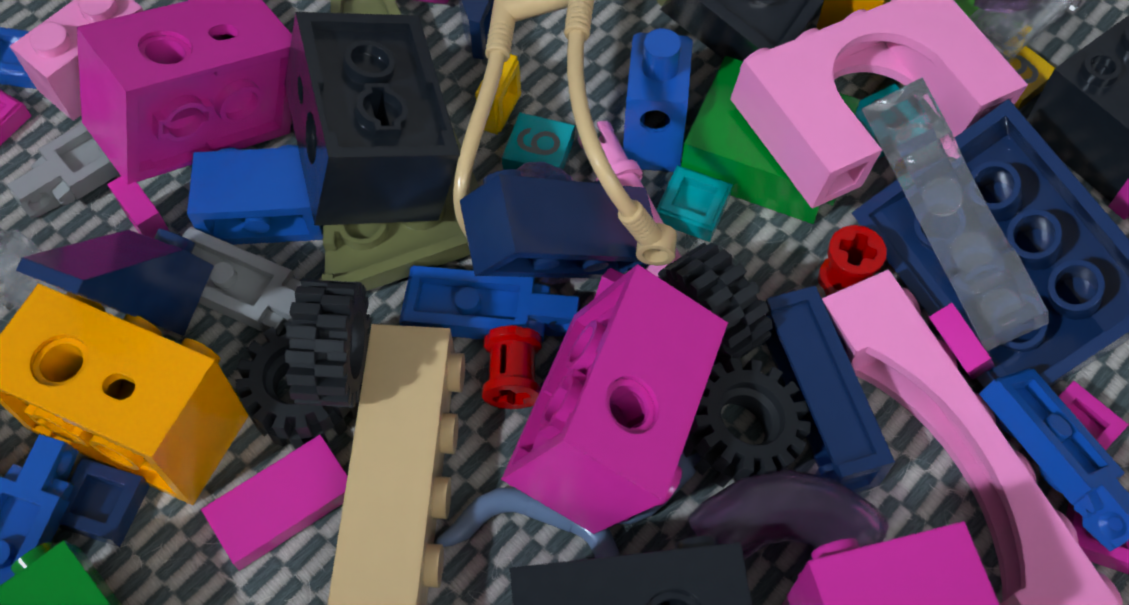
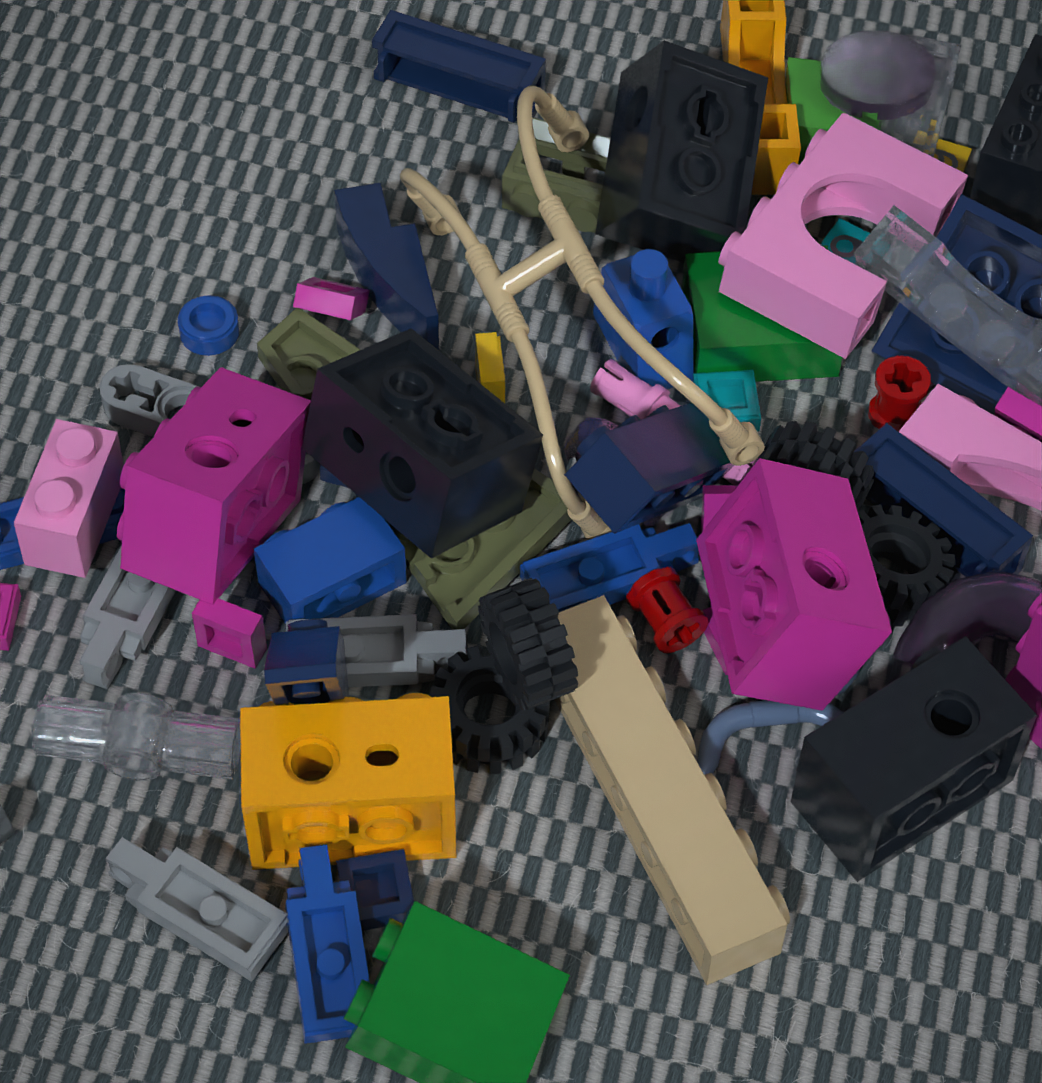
camera: 30 degrees left, 5 degrees down
(277, 502) = (537, 814): dark pink tile -> none
(538, 141) = (565, 402): teal tile -> none

